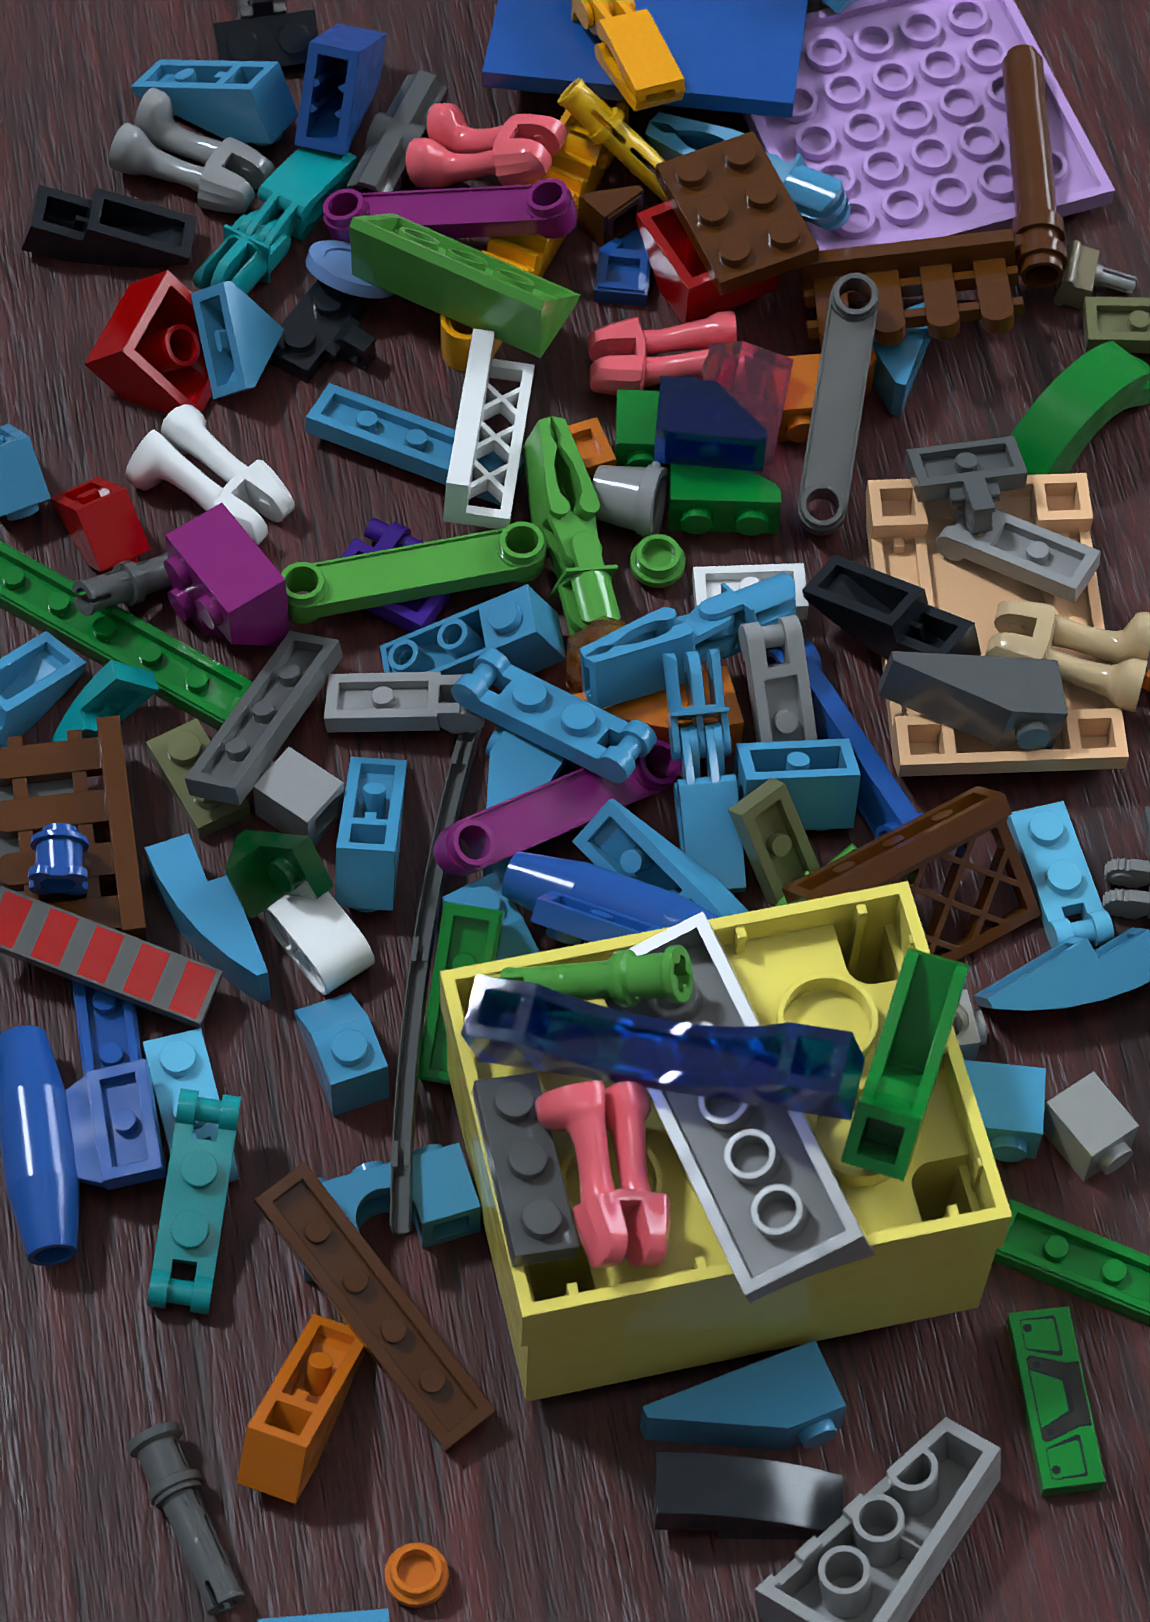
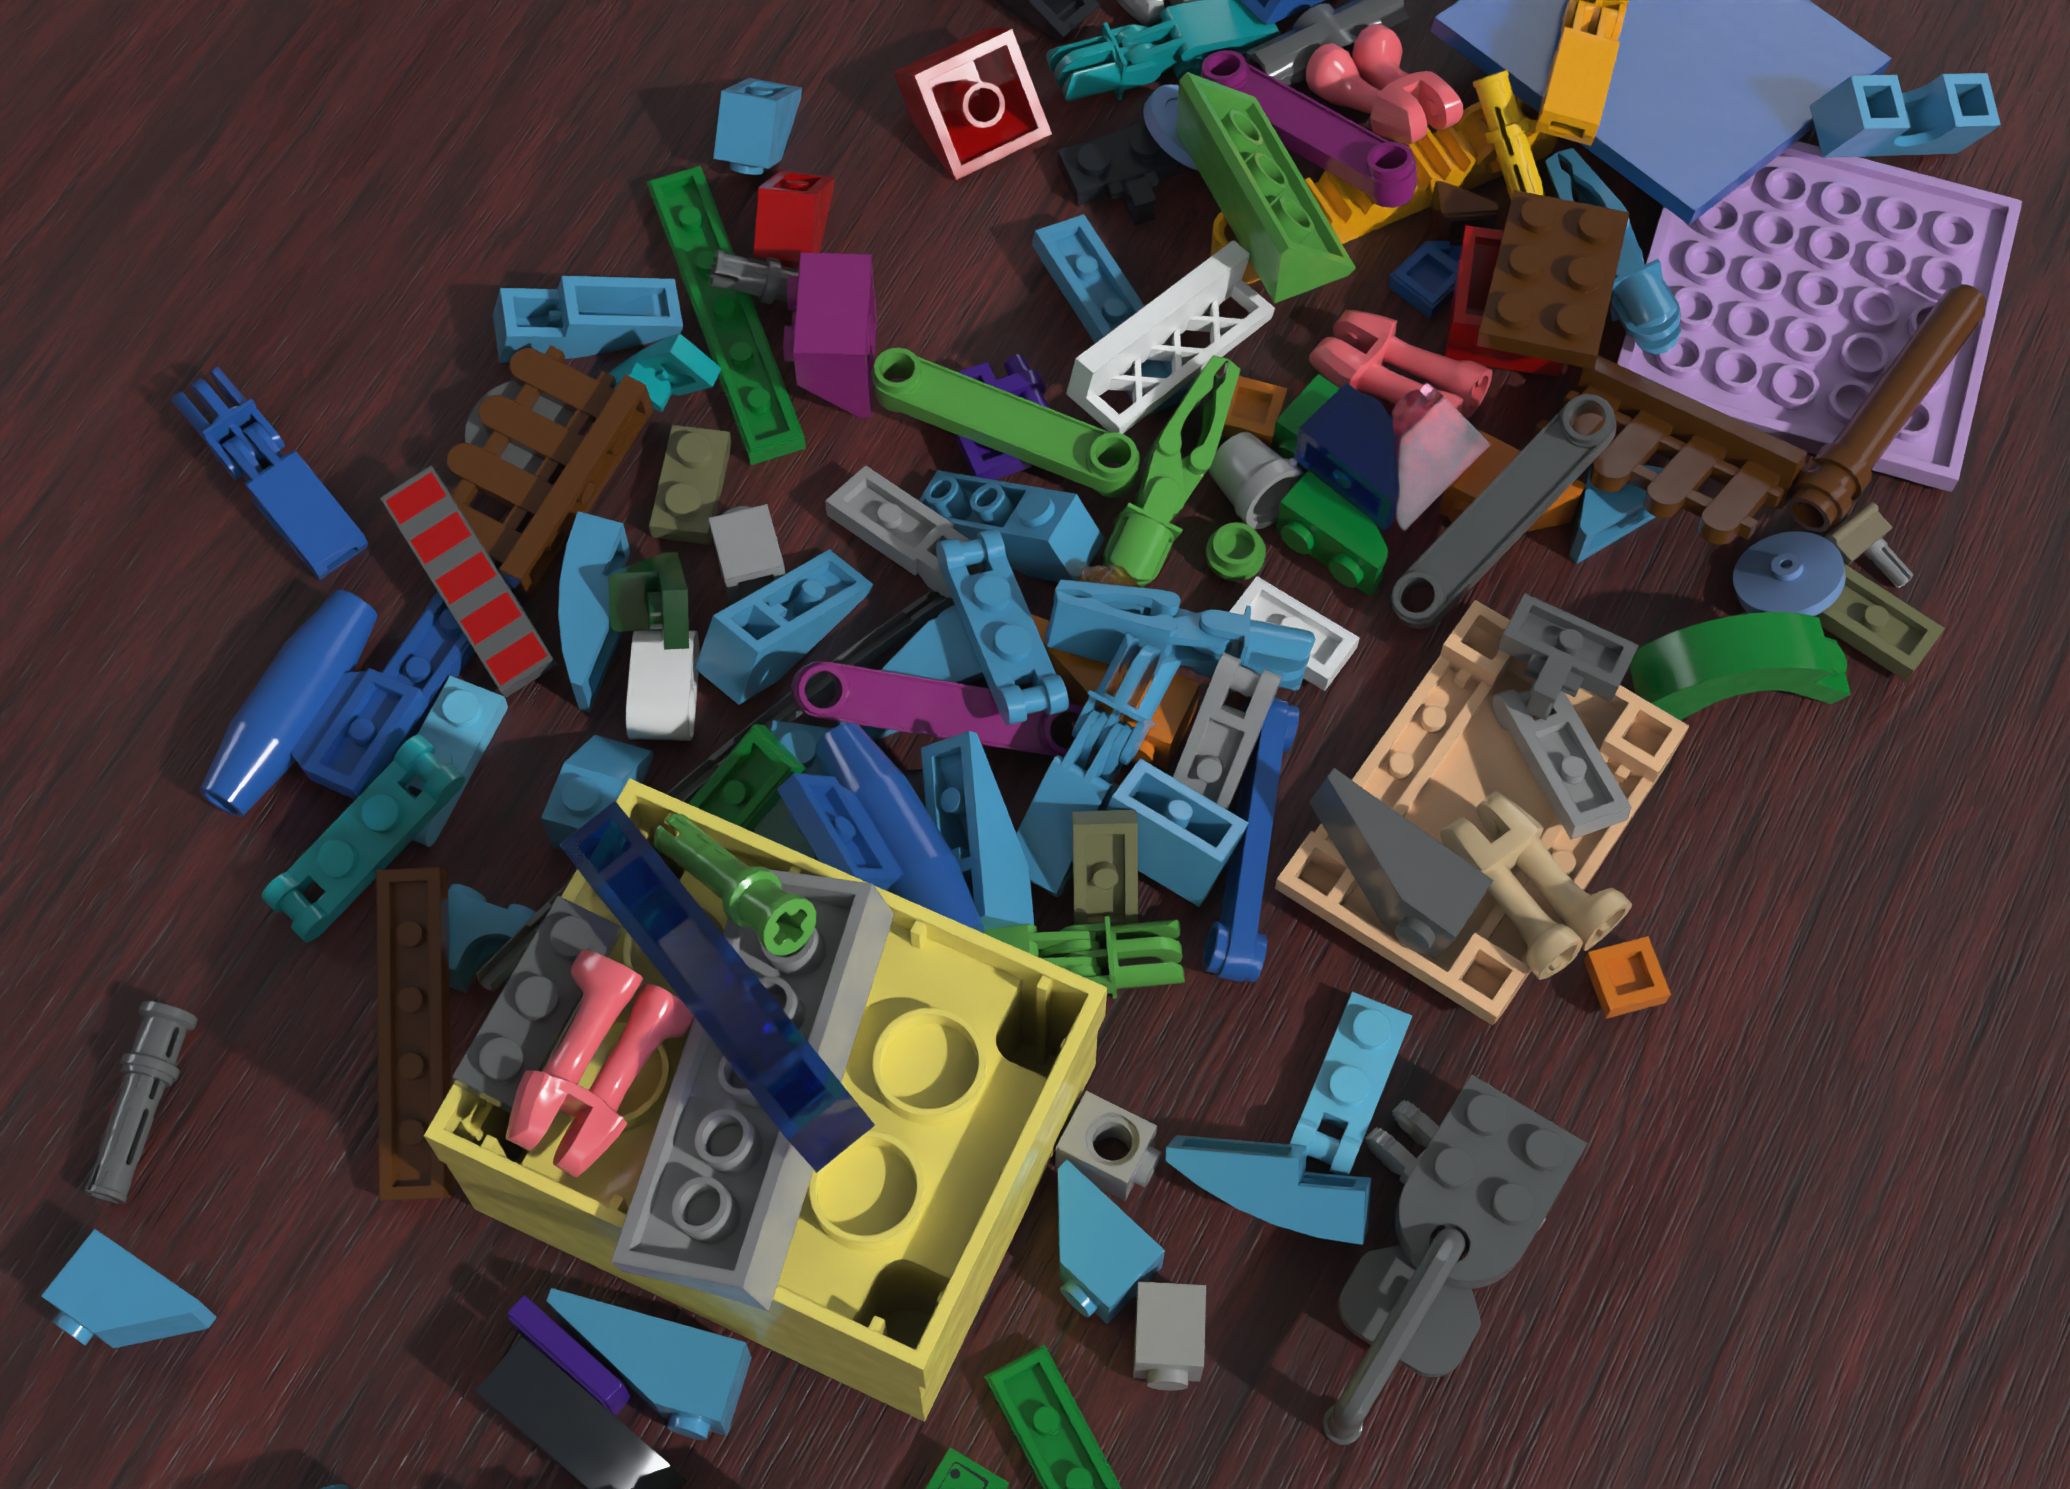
camera: 40 degrees right, 5 degrees up
(58, 861) = (494, 474): blue brick -> none
(234, 337) = (1034, 125): dark azure slope -> none
(247, 488) = (907, 266): white piece -> none
(263, 718) = (773, 466): dark grey plate -> none
(300, 1410) = (287, 1079): orange slope -> none
(416, 1575) = (268, 1289): orange plate -> none
(644, 1441) = (568, 1355): none -> dark purple tile
(887, 611) = (1385, 737): black slope -> none
(905, 1064) = (939, 1158): green arch -> none
(919, 843) = (1206, 962): reddish brown fence -> none
(1057, 329) = (1789, 574): none -> medium blue piece

